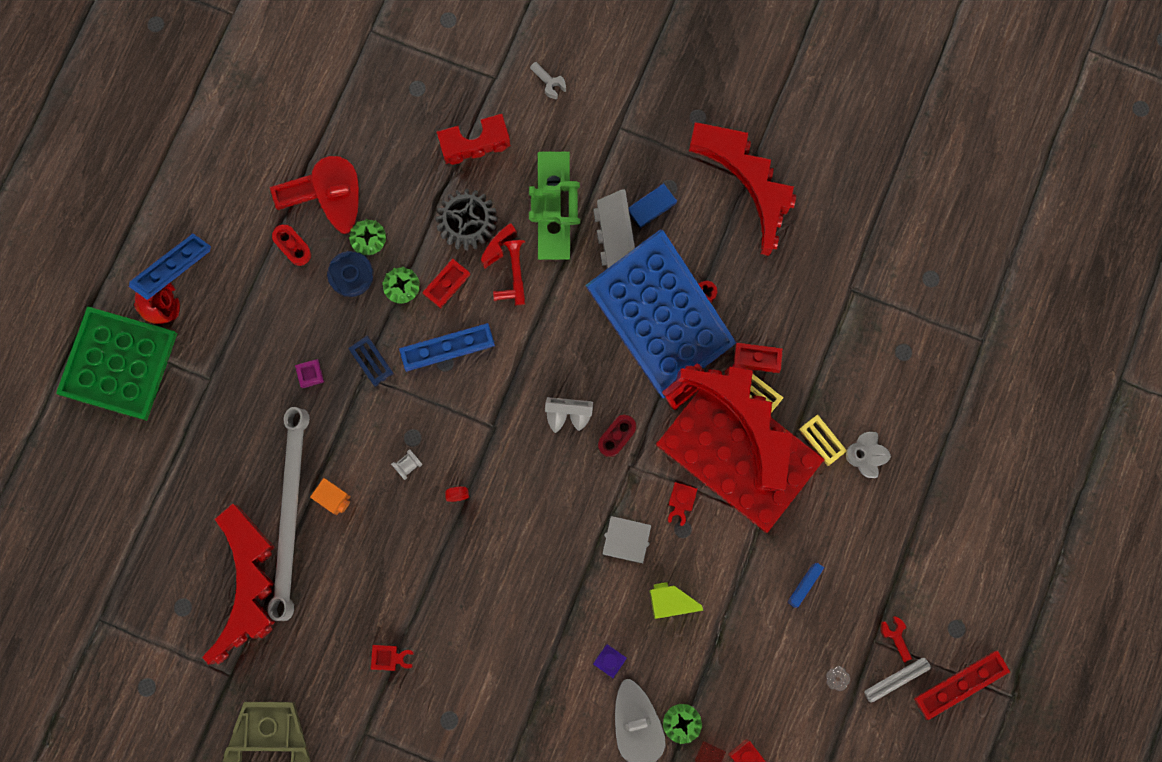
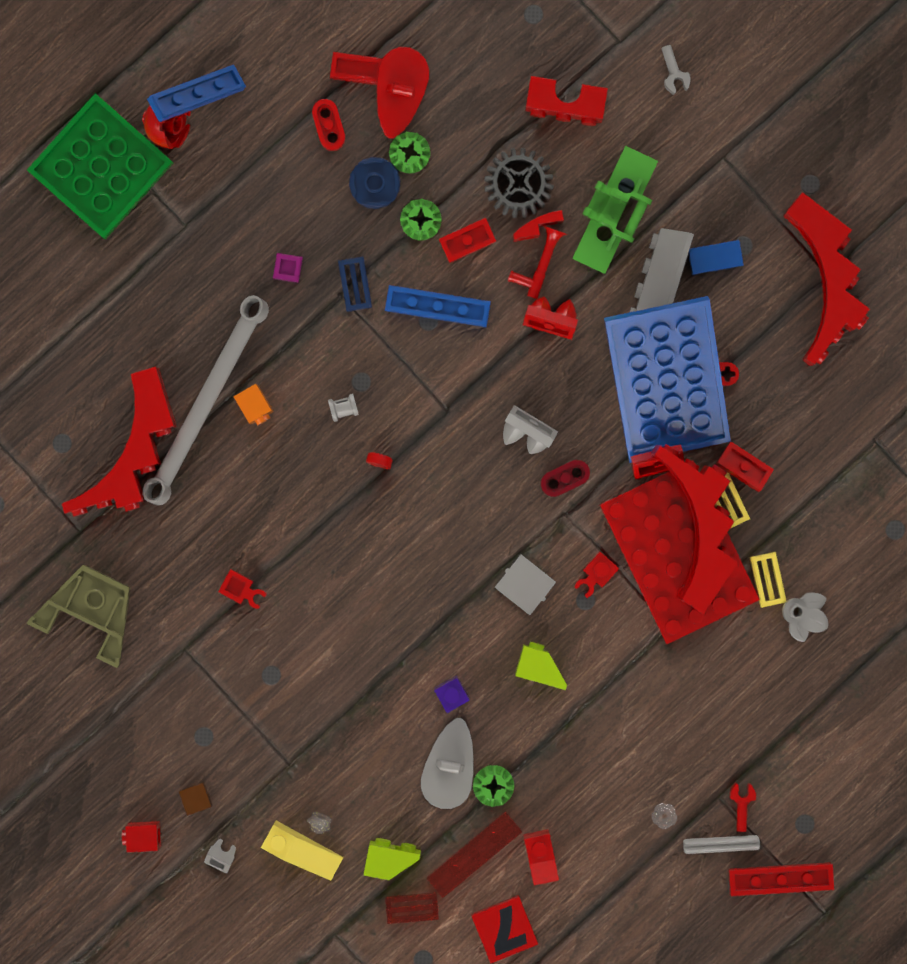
camera: 25 degrees right, 10 degrees up
(538, 316) = (559, 323): none -> red tile
(805, 585) = (678, 712): blue tile -> none

